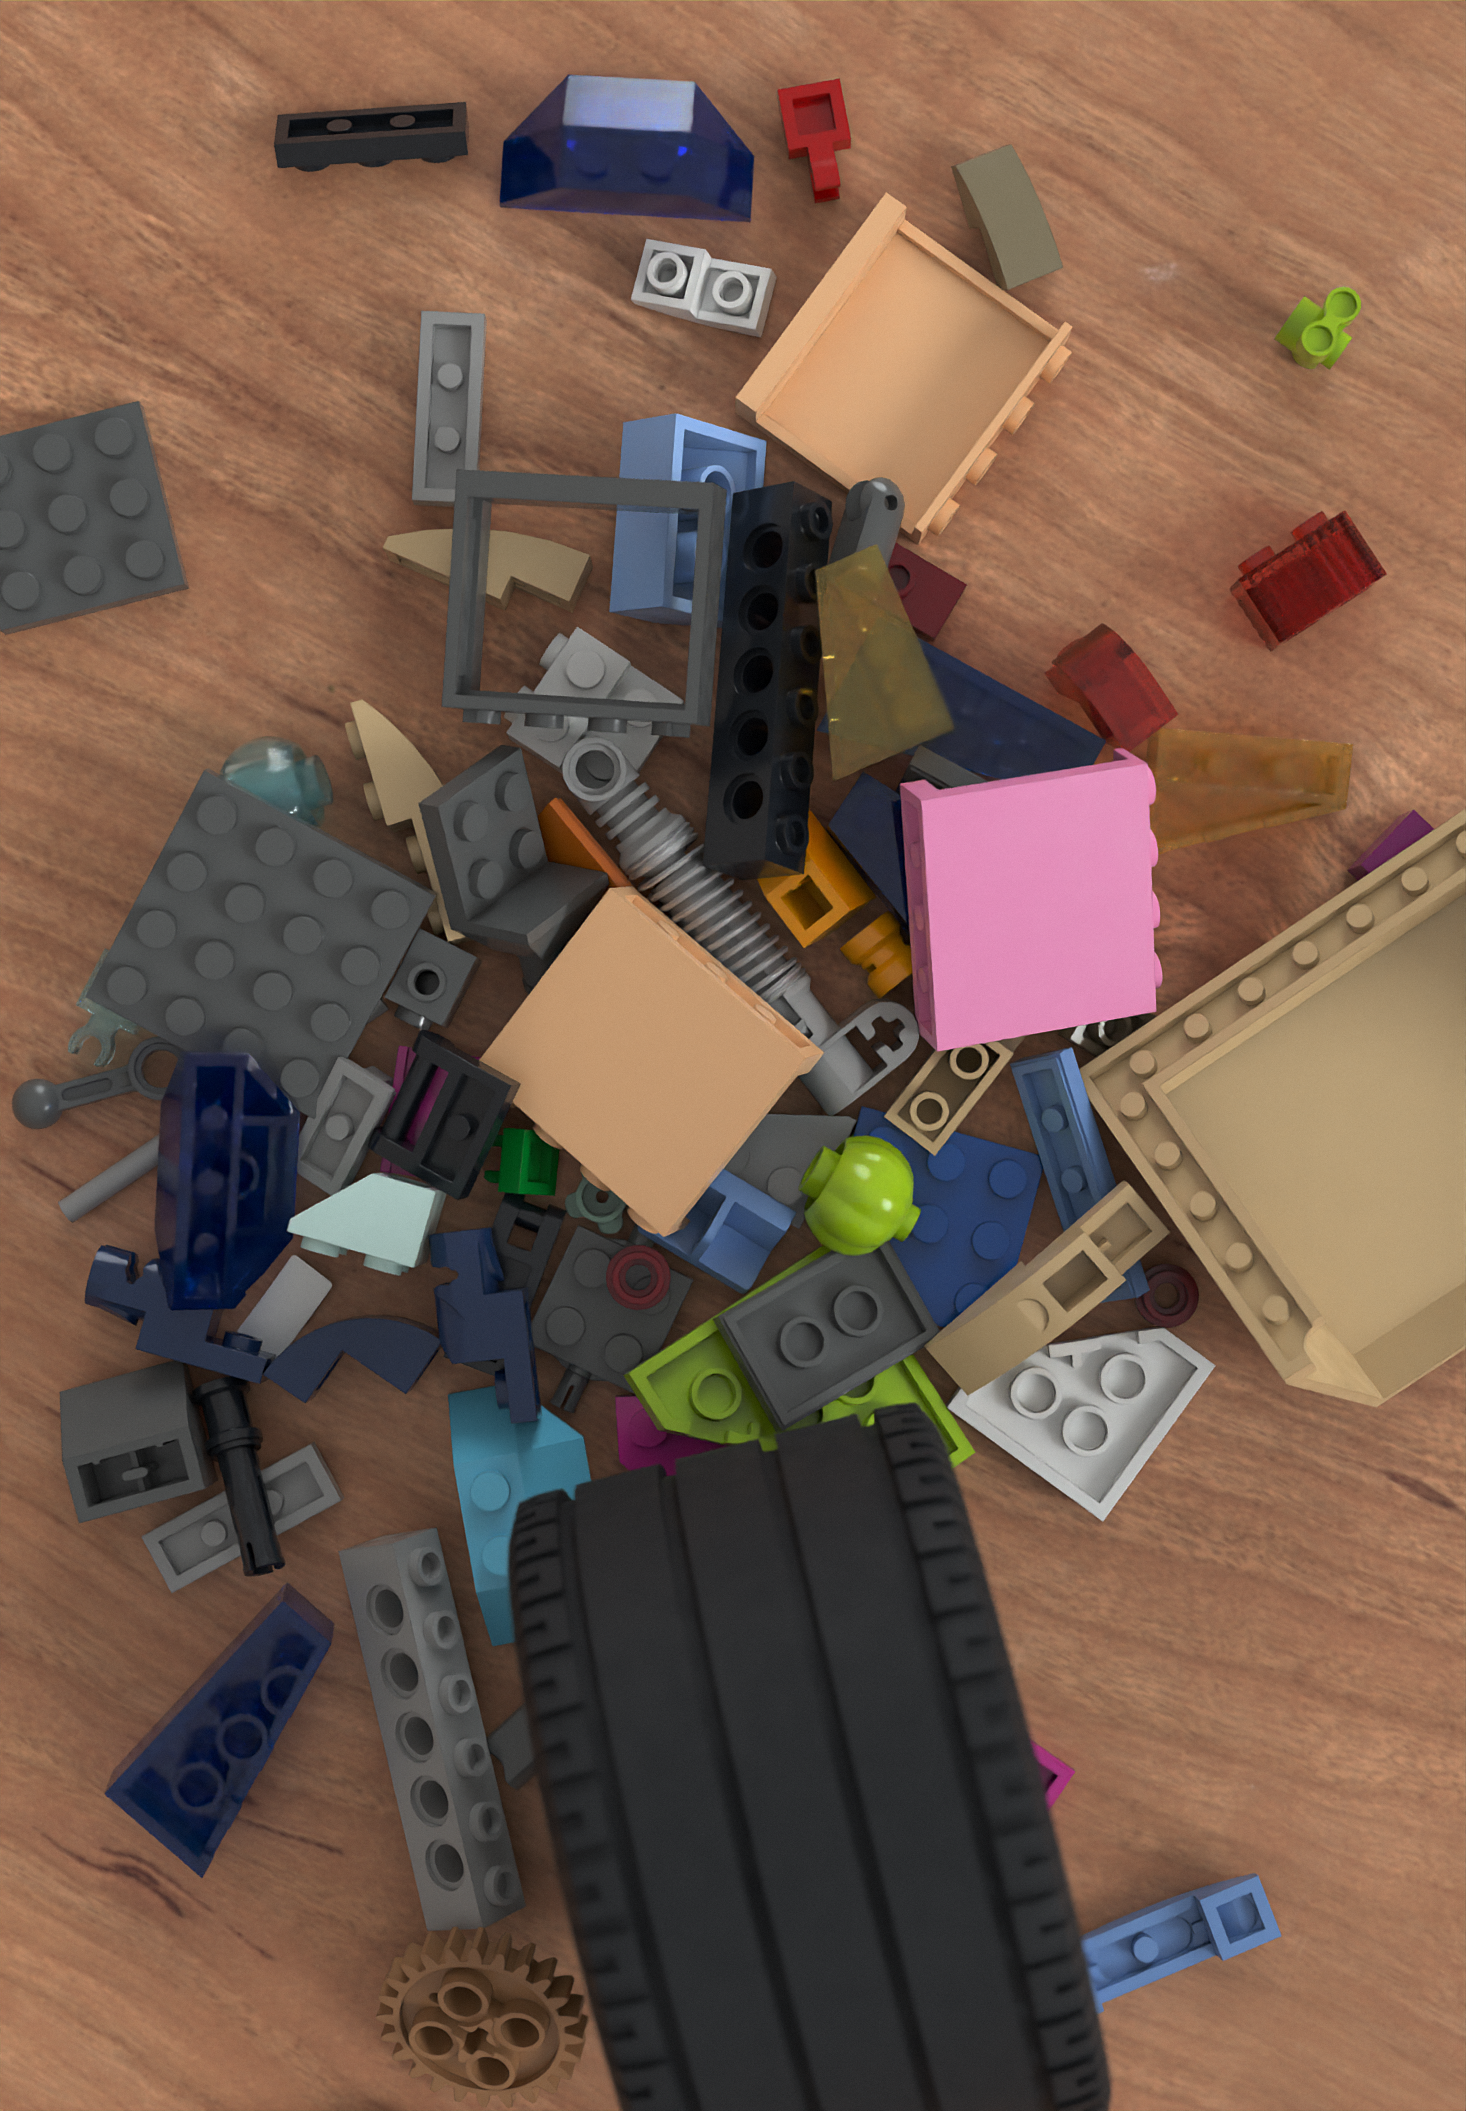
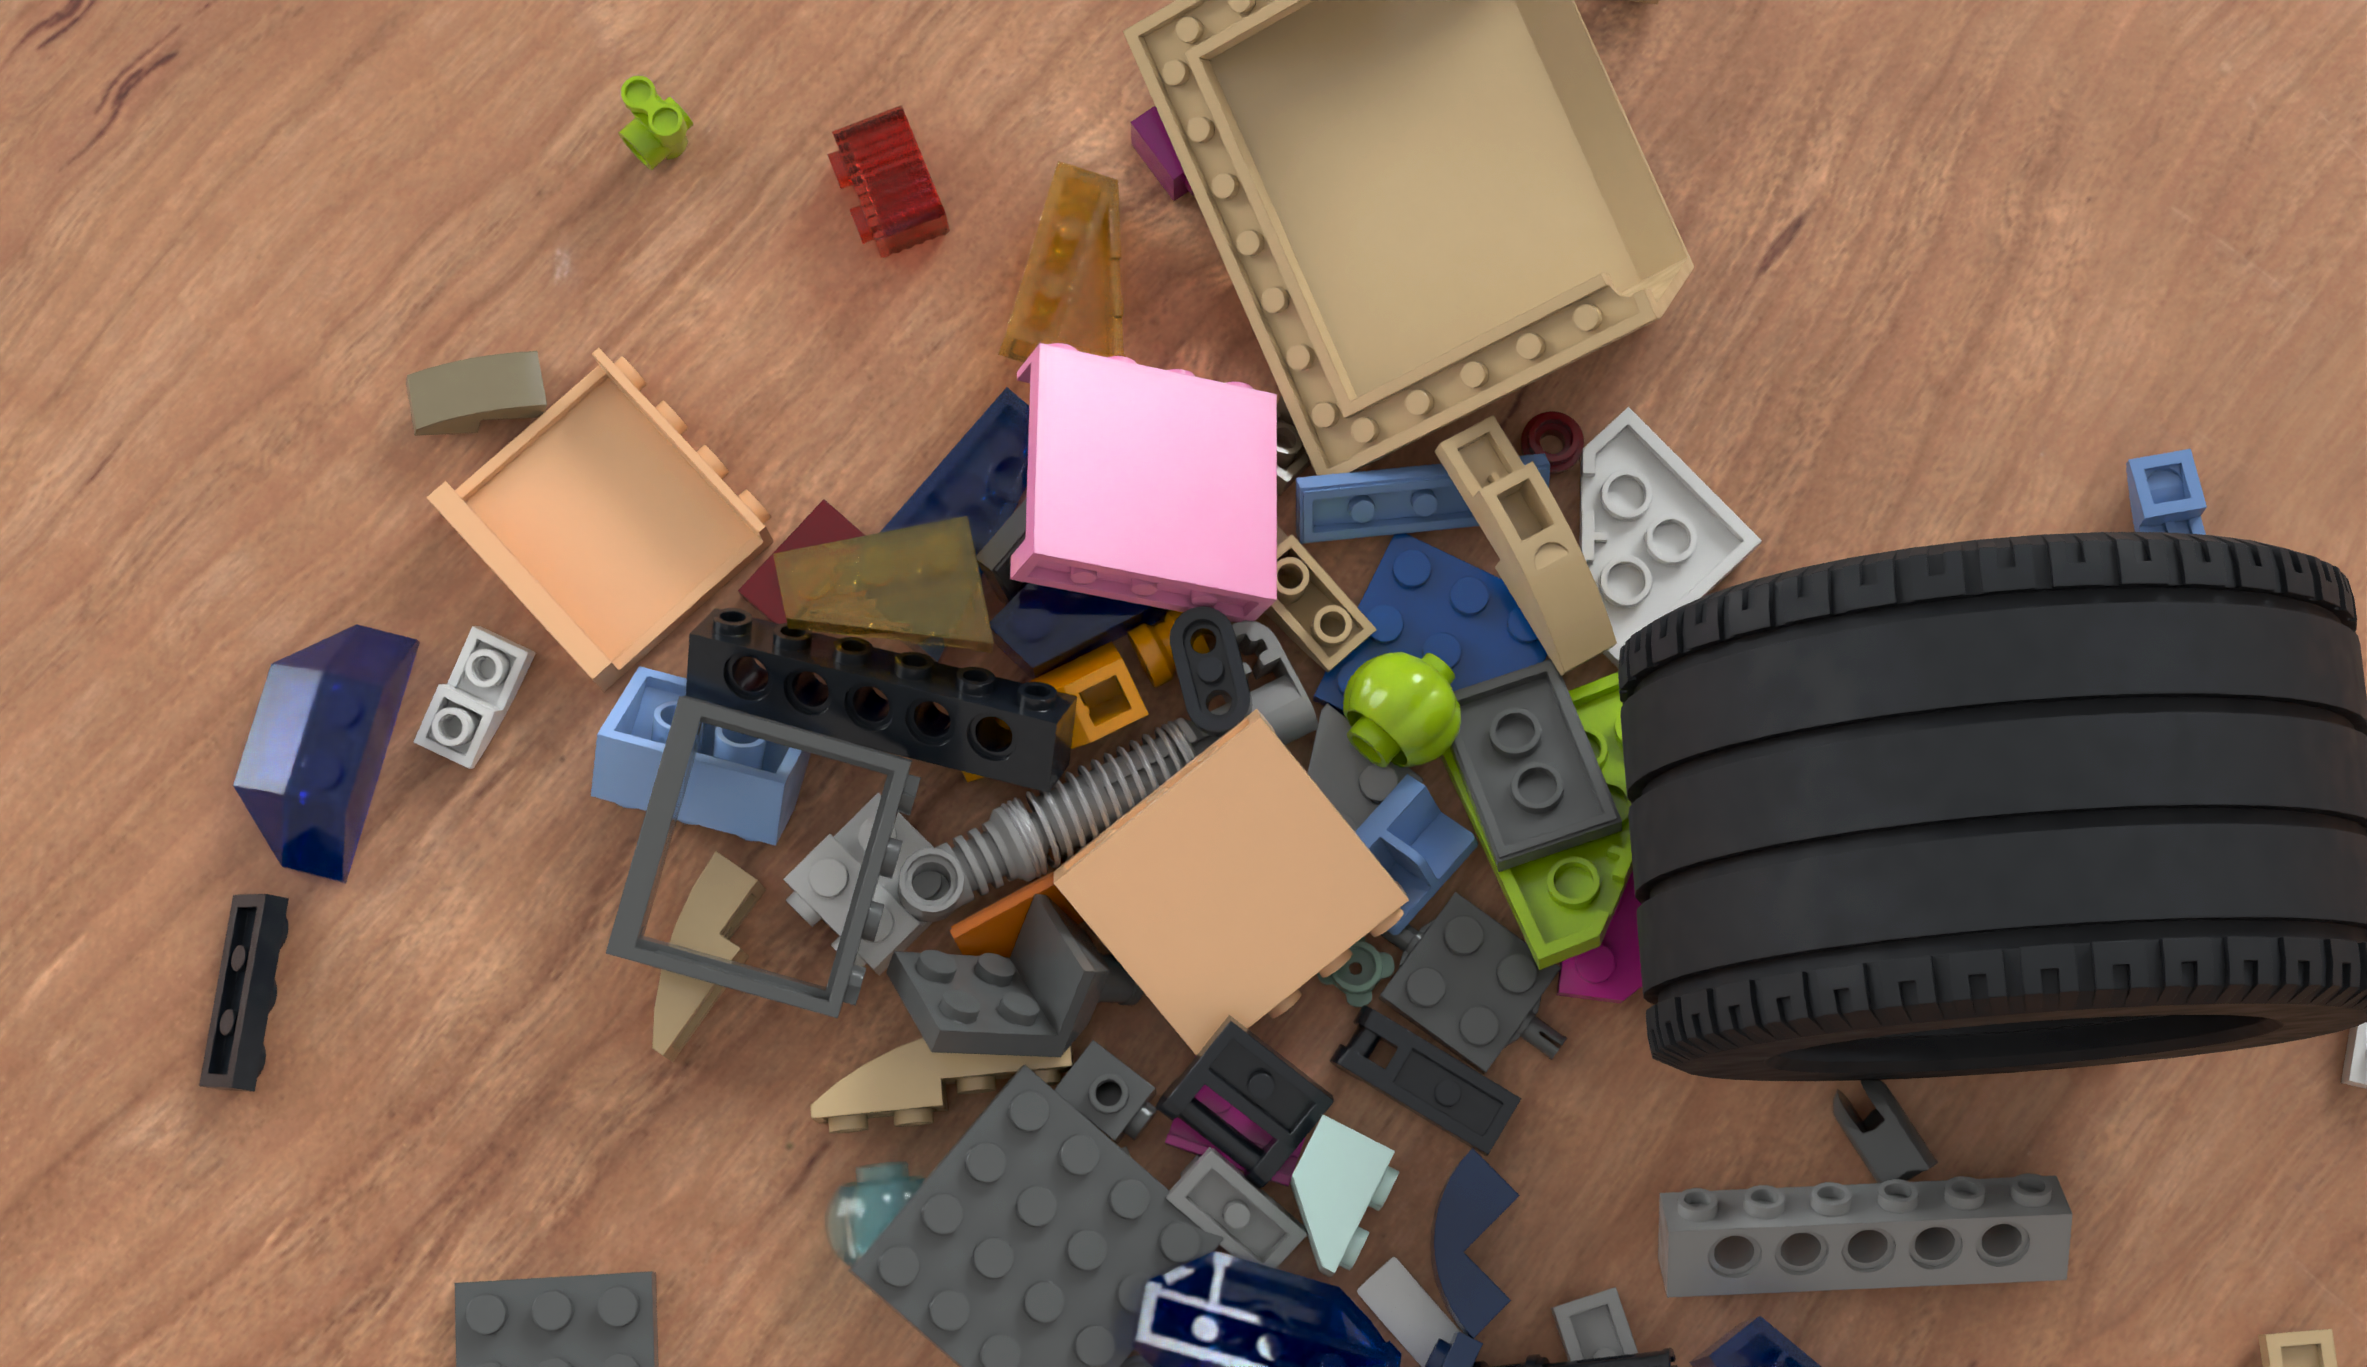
camera: 75 degrees left, 10 degrees down
(448, 403) = (536, 968): light grey plate -> none
(482, 2017) = (2162, 1238): medium nougat gear -> none
(486, 1323) = (1461, 1100): dark blue plate -> none
(494, 1472) = (1626, 1108): medium azure wedge -> none
(526, 1164) = (1309, 1034): green tile -> none
(638, 1298) = (1447, 920): dark red plate -> none
(815, 127) = (343, 556): red plate -> none
(853, 999) = (1210, 673): none -> black plate
(870, 518) = (750, 574): dark grey piece -> none
(1111, 688) = (954, 375): clear red brick -> none

